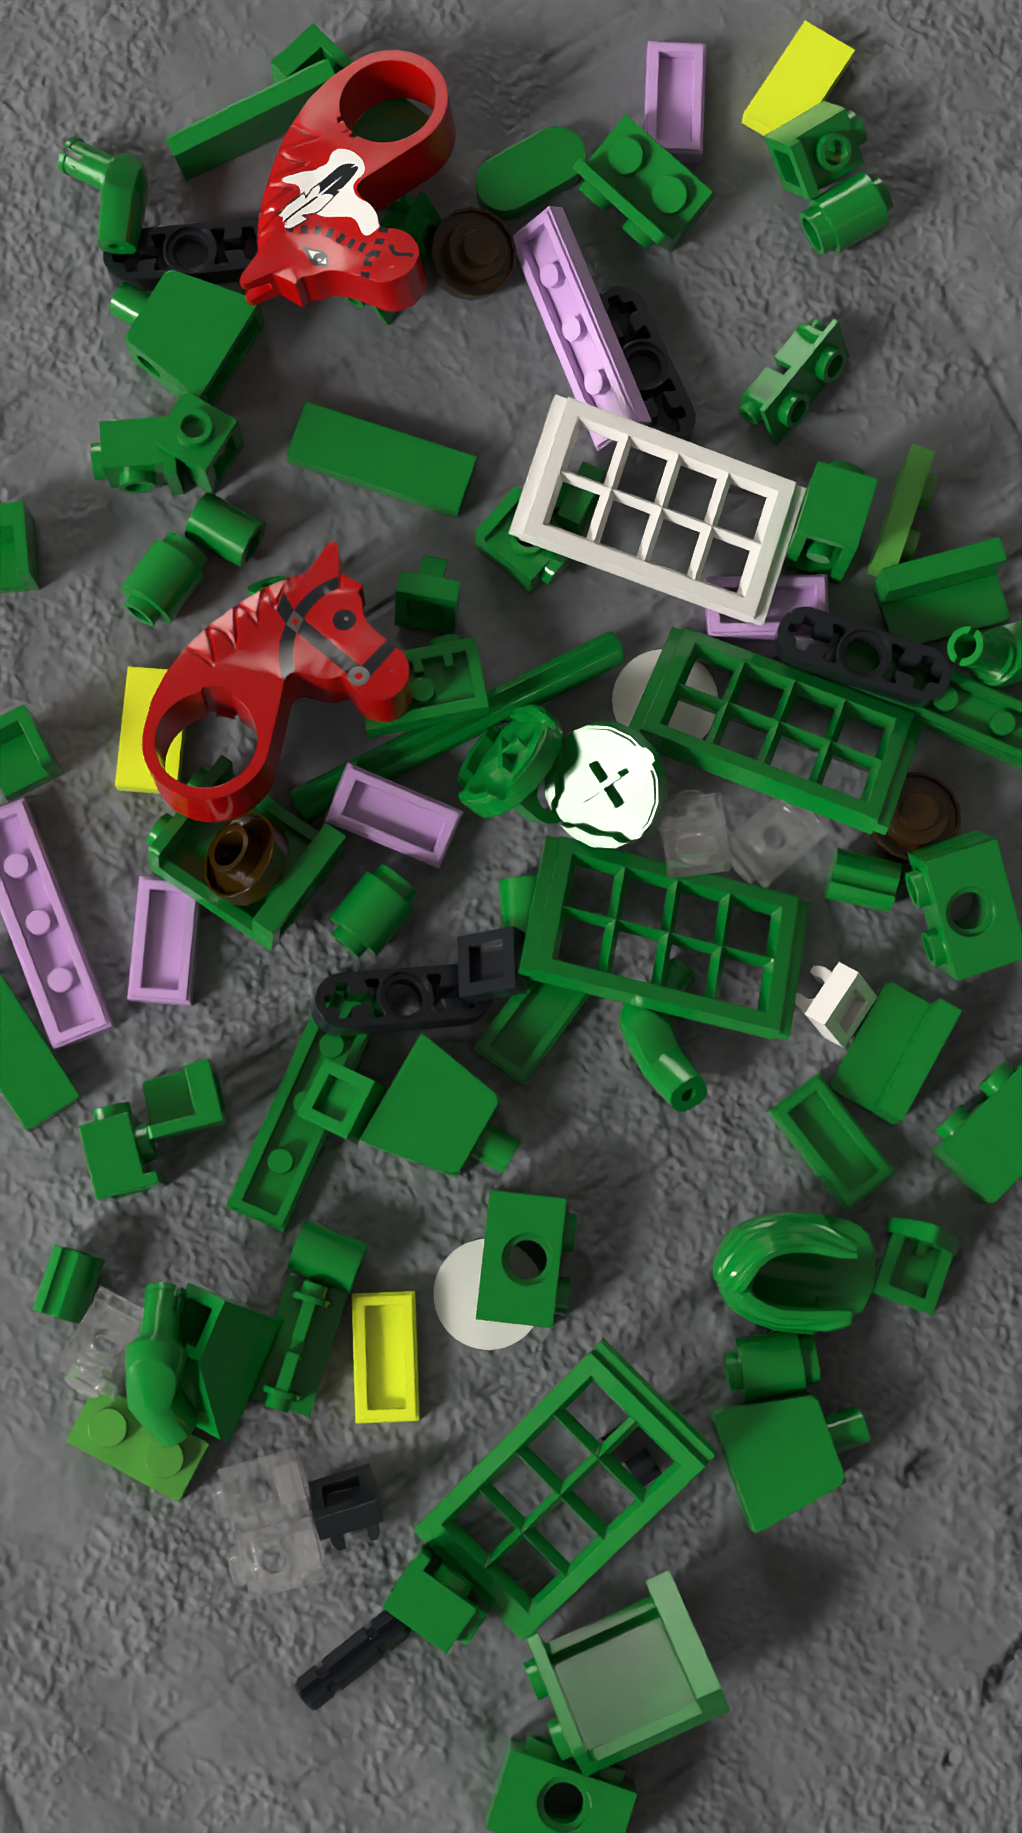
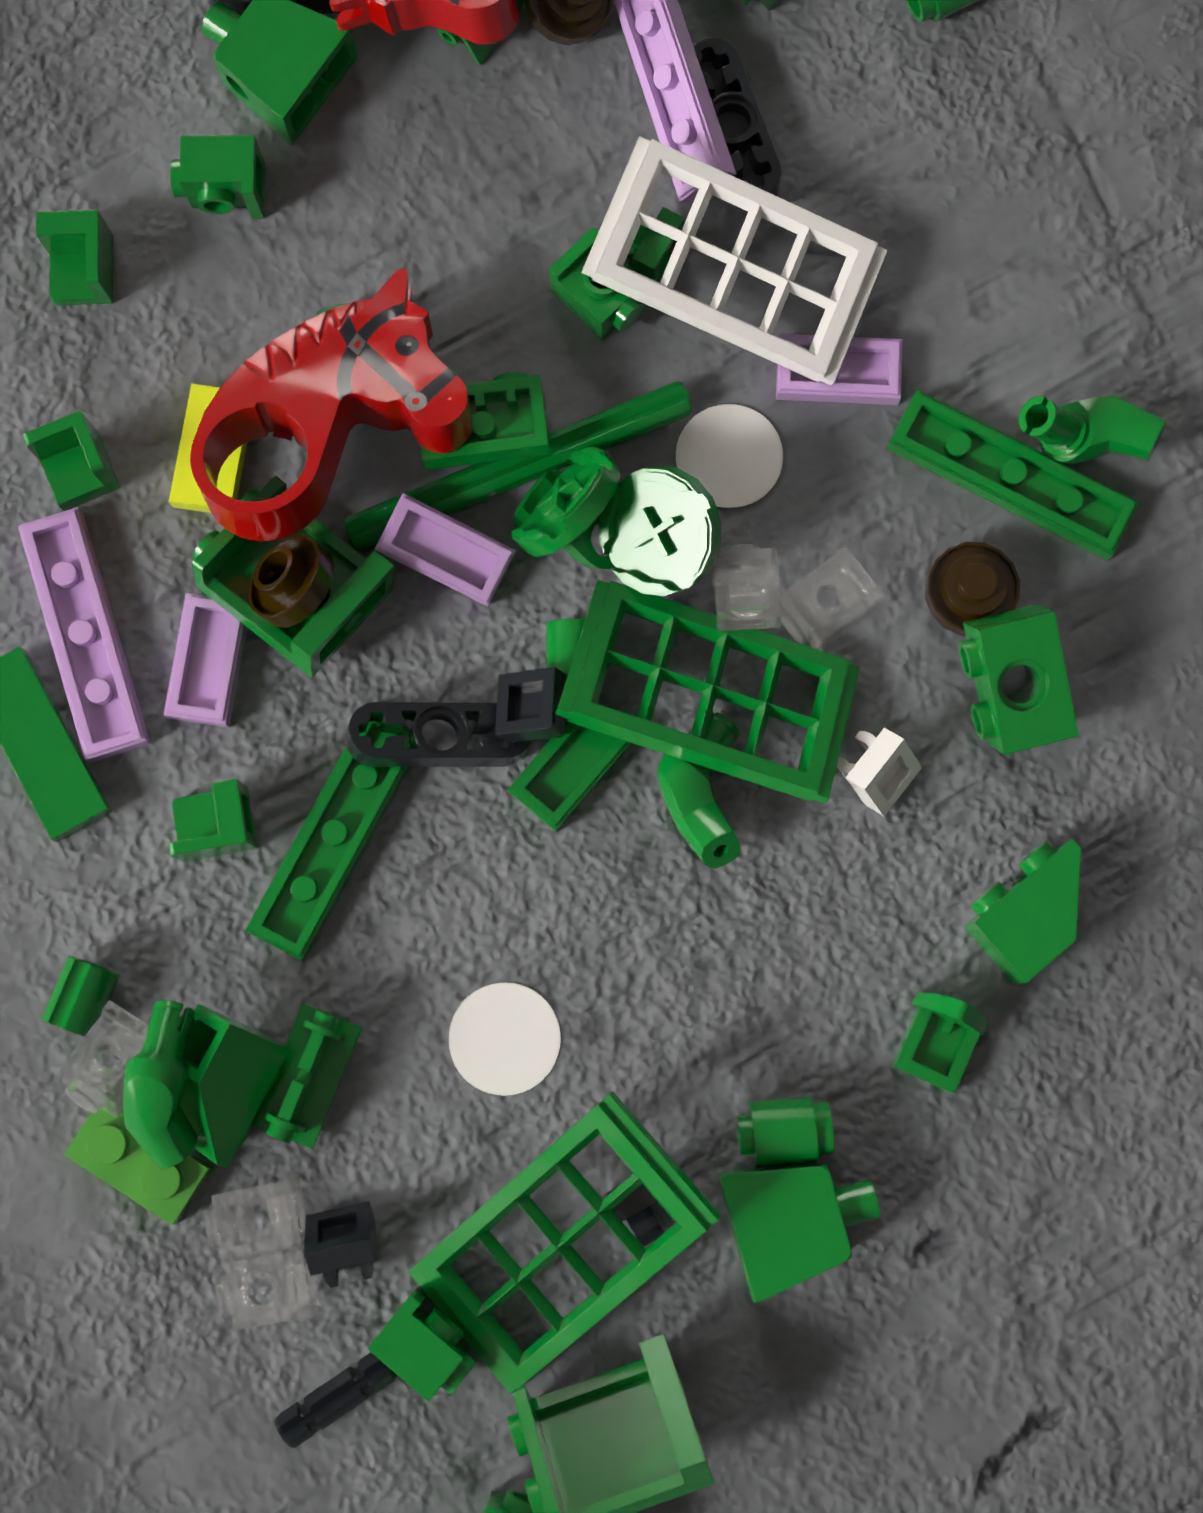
camera: 10 degrees right, 0 degrees up
(119, 1153) = (141, 869): green brick -> none
(163, 580) = (234, 300): green brick -> none
(201, 439) = (284, 161): green bracket -> none
(225, 529) = (299, 254): green piece -> none
(327, 1256) = (343, 988): green piece -> none
(341, 1101) = (368, 832): green tile -> none
(373, 912) = (417, 644): green brick -> none
(381, 459) = (463, 196): green tile -> none
(385, 1357) = (394, 1094): neon yellow tile -> none
(428, 598) = (496, 335): green tile -> none
(439, 1116) = (466, 854): green torso -> none
(502, 1293) = (535, 965): green brick -> none
(796, 1271) = (817, 1038): green hair -> none
(813, 359) = (903, 126): green hinge -> none
(830, 520) = (908, 281): green brick -> none
(831, 1142) = (864, 911): green tile -> none
(862, 880) = (915, 647): green piece -> none
(885, 770) = (946, 537): green piece -> none
(893, 1052) = (934, 824): green panel -> none
(901, 684) = (967, 457): black beam -> none
(912, 491) = (995, 261): bright green plate -> none
(943, 592) = (1013, 362): green panel -> none

